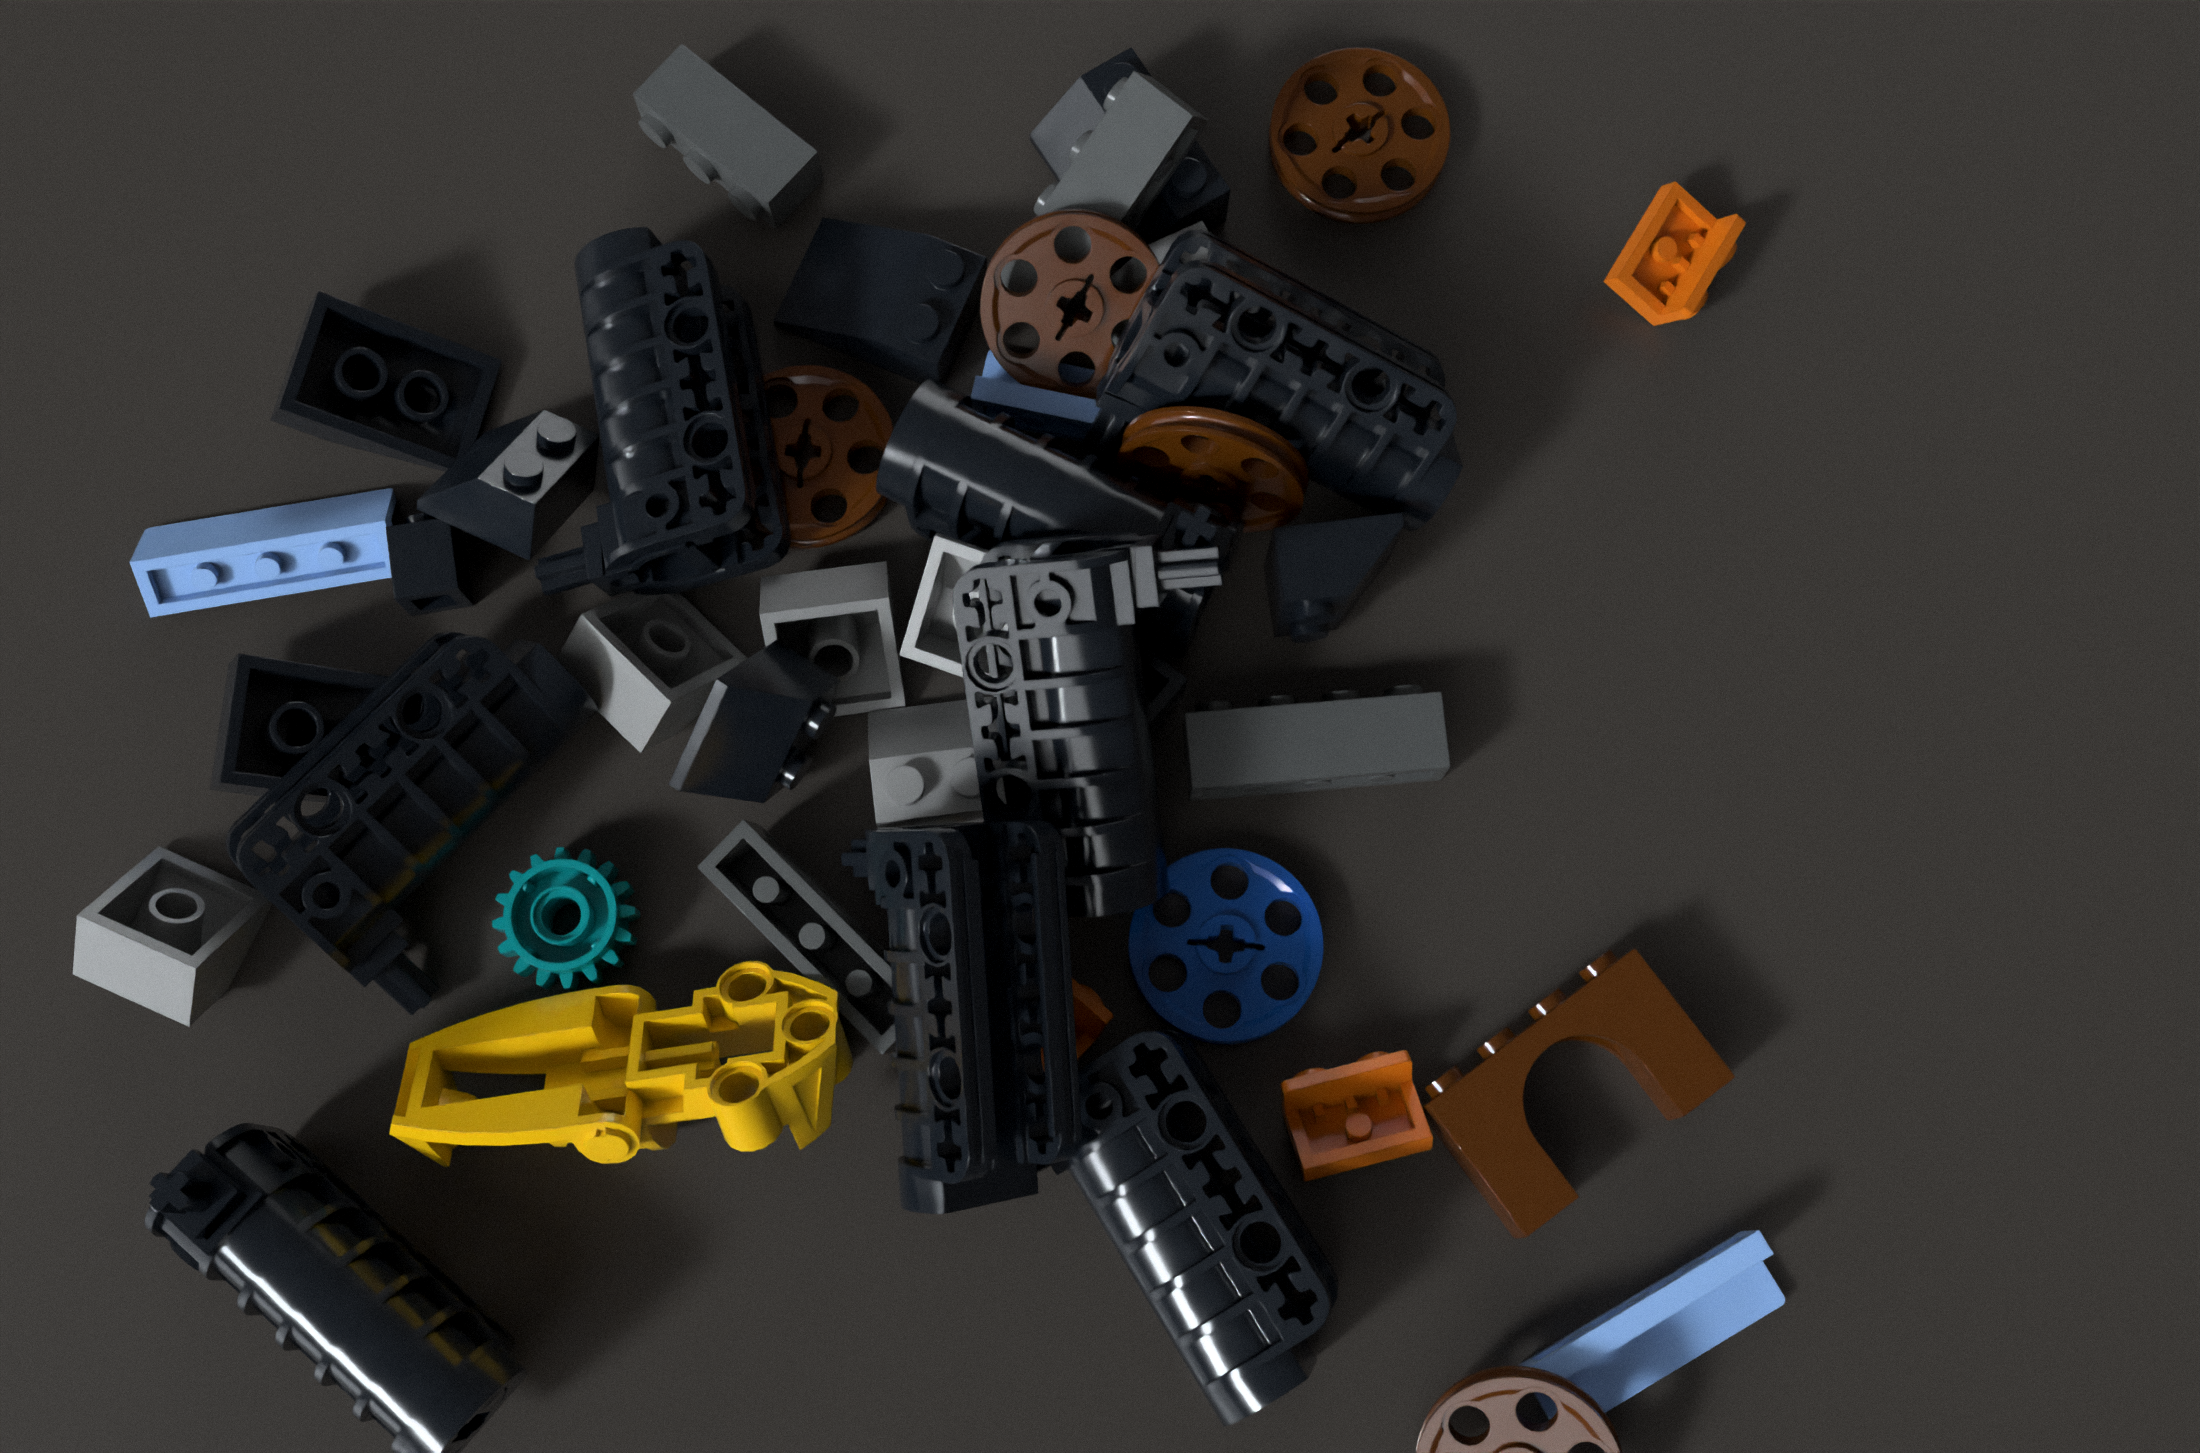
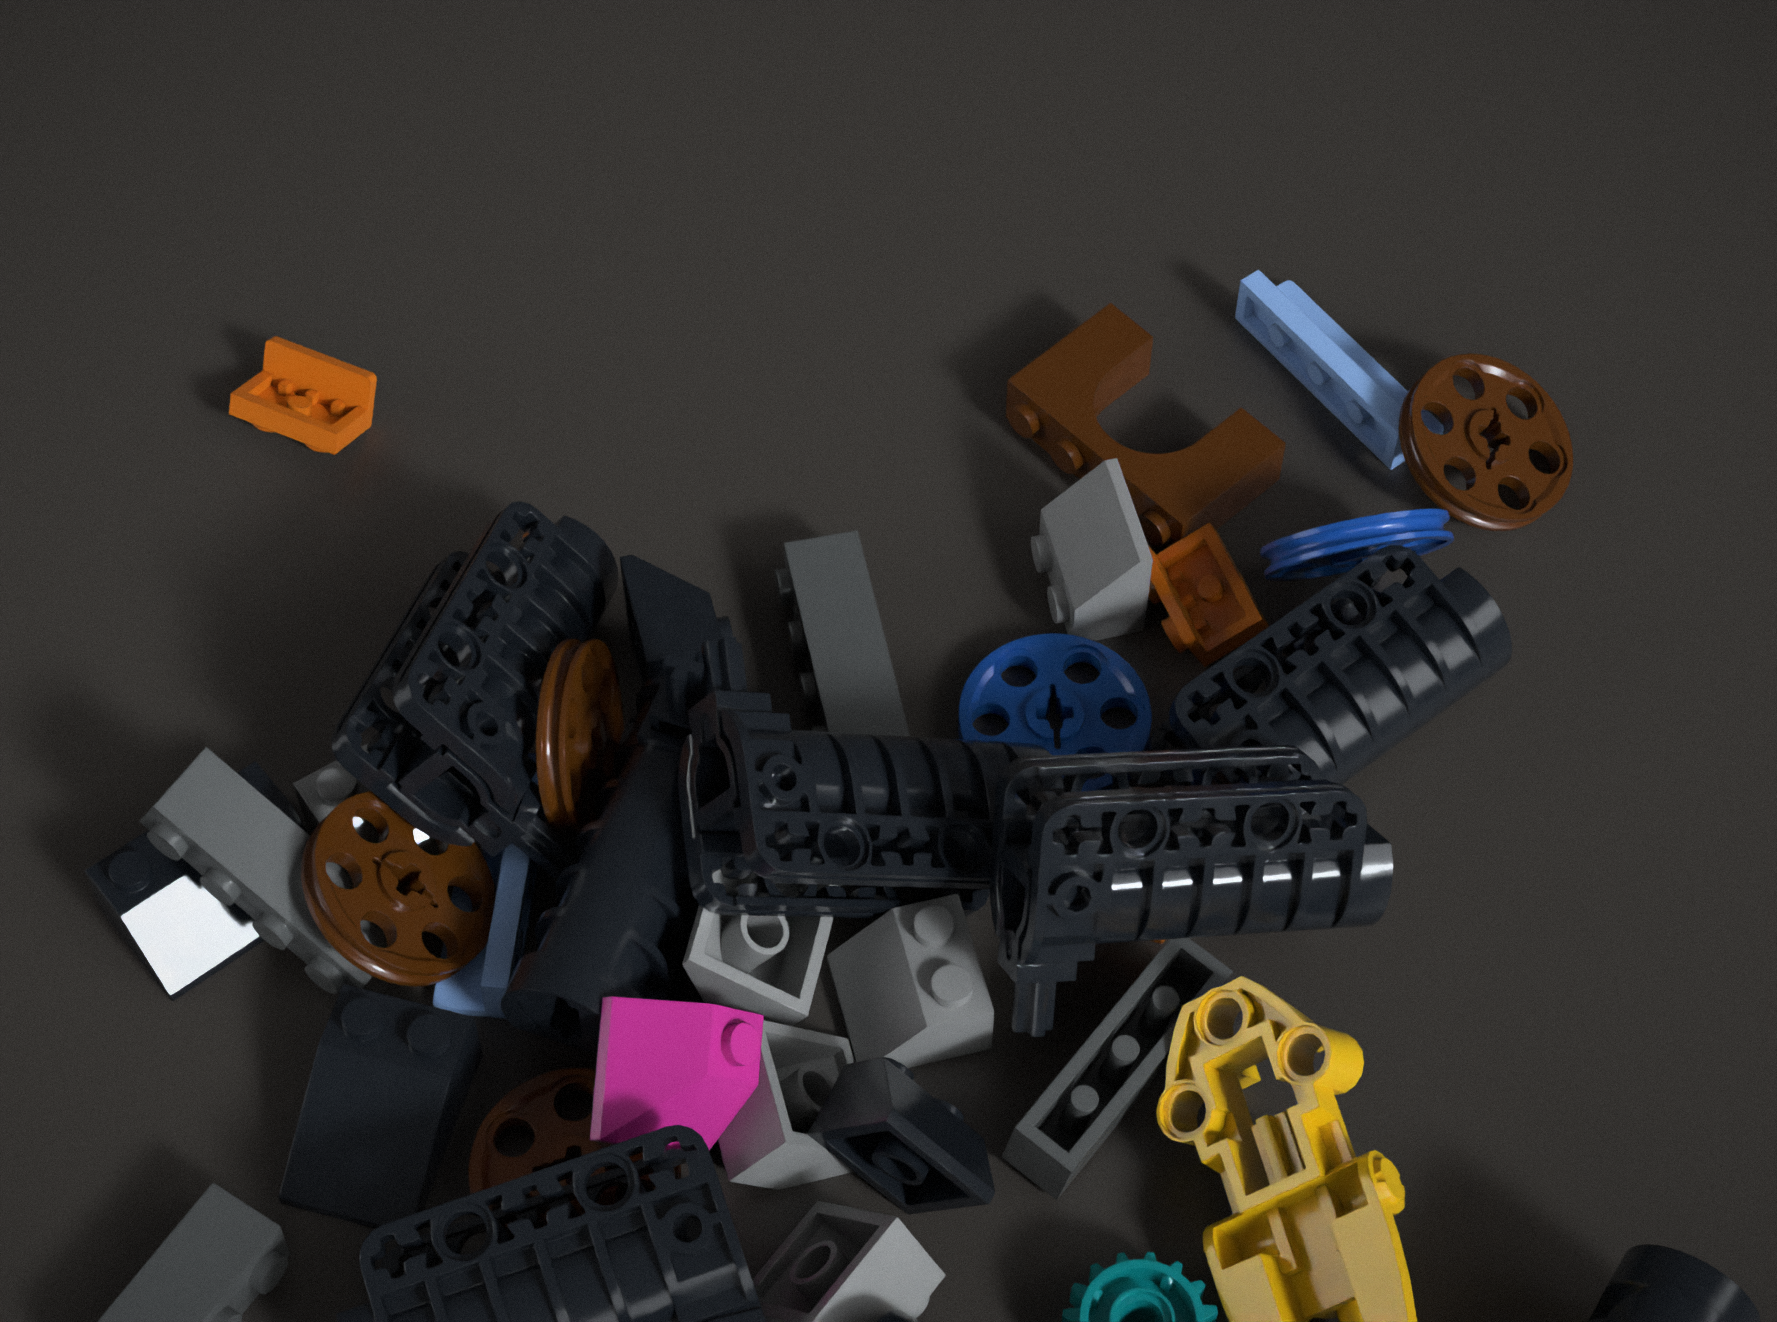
camera: 95 degrees left, 20 degrees down
(846, 520) = (672, 1067): none -> dark pink slope
(1361, 110) = (164, 703): reddish brown wedge -> none
(1366, 1282) = (1347, 543): none -> blue wedge
(1399, 1005) = (1095, 556): none -> light grey slope

